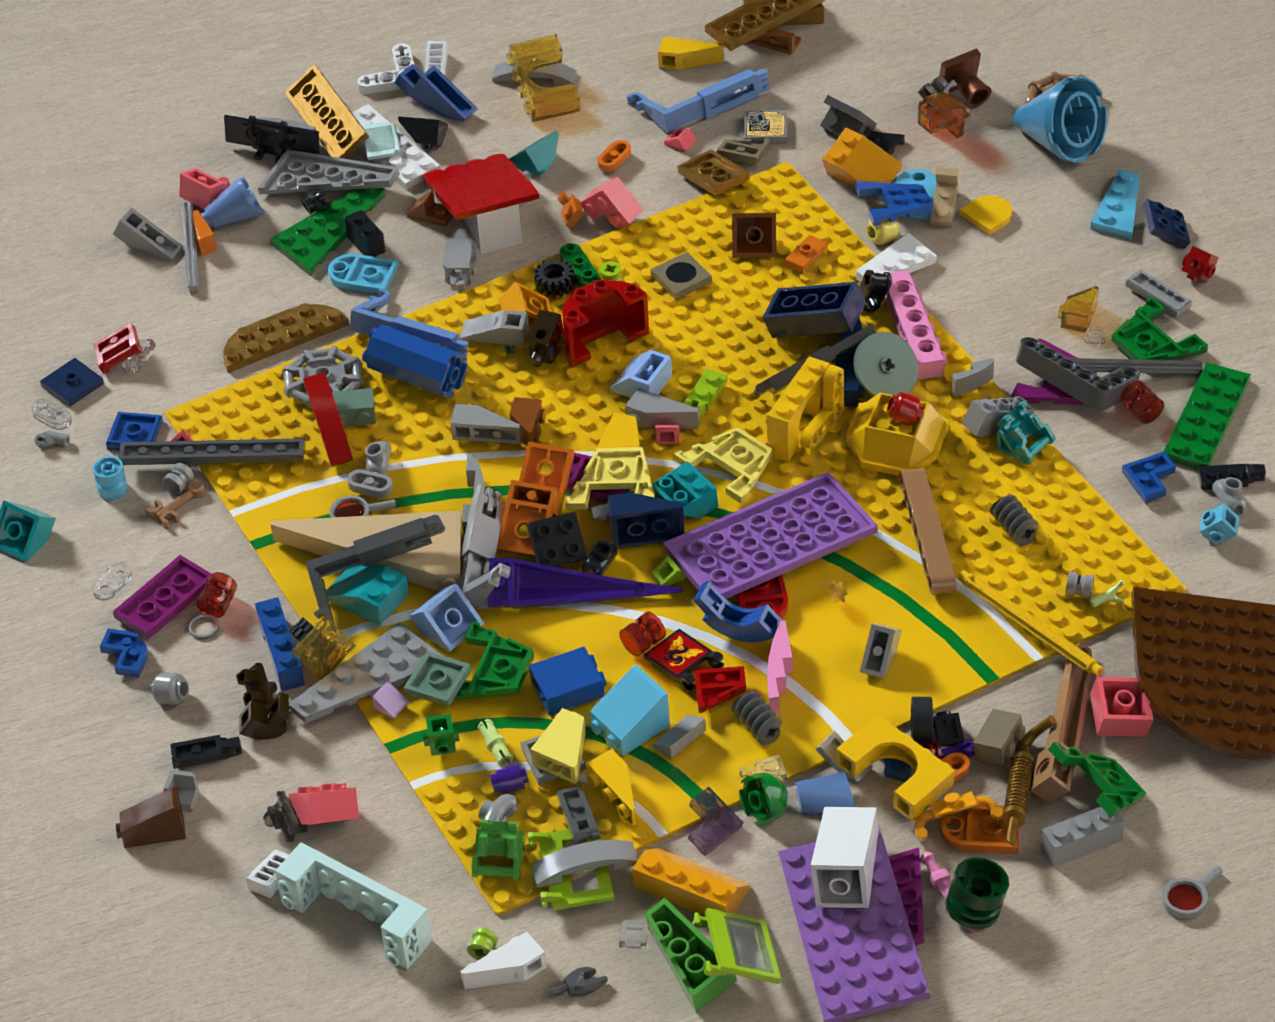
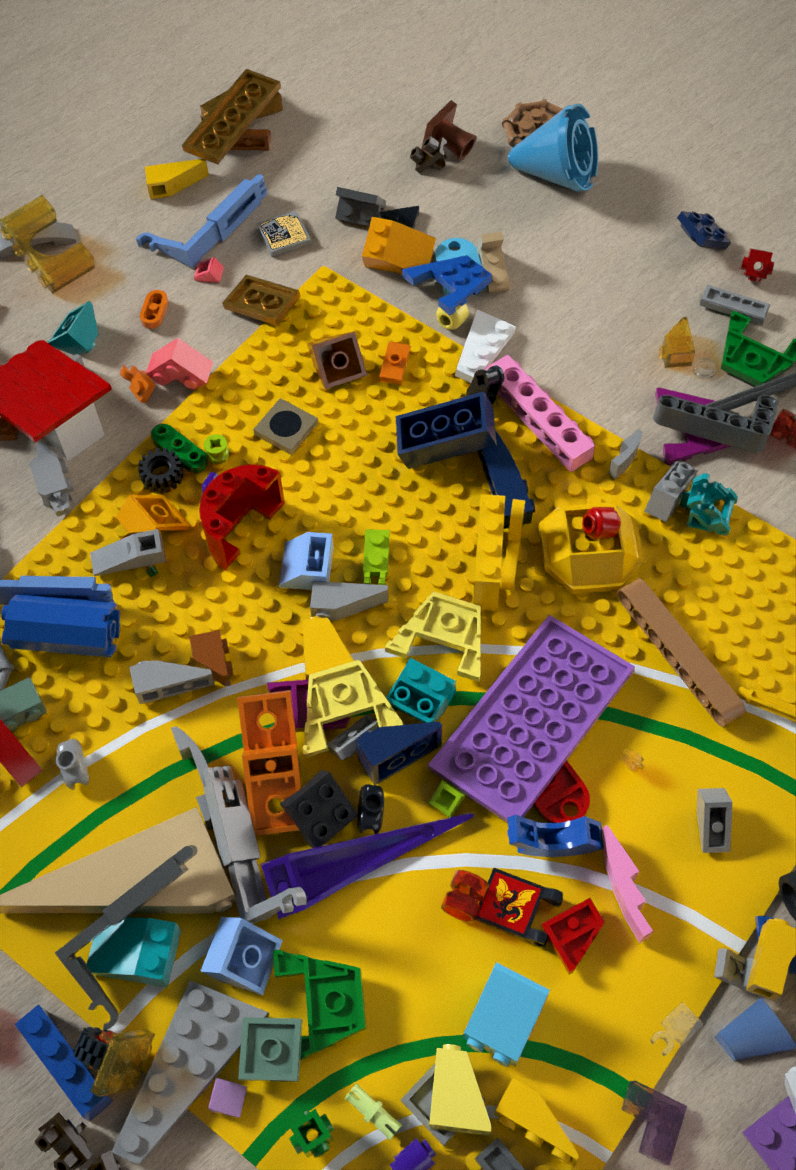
camera: 25 degrees left, 15 degrees up
(356, 506) = (73, 841): piece -> none
(370, 483) = (77, 798): light grey plate -> none
(545, 338) = (188, 551): dark brown torso -> none
(567, 680) = (413, 990): blue brick -> none
(667, 434) = (364, 623): coral slope -> none
(680, 735) = (564, 1015): light grey slope -> none
(744, 150) = (277, 266): dark tan wing -> none
(757, 717) = (638, 961): dark grey piece -> none
(763, 797) = (697, 1066): green cylinder -> none
(782, 379) = (484, 482): dark grey hinge -> none
(899, 357) = (546, 490): sand green piece -> none
(942, 111) = (444, 172): clear orange brick -> none
(988, 213) = (536, 265): yellow tile -> none
(1015, 519) = (757, 608): dark grey piece -> none
(1118, 207) = (647, 224): medium azure wing -> none

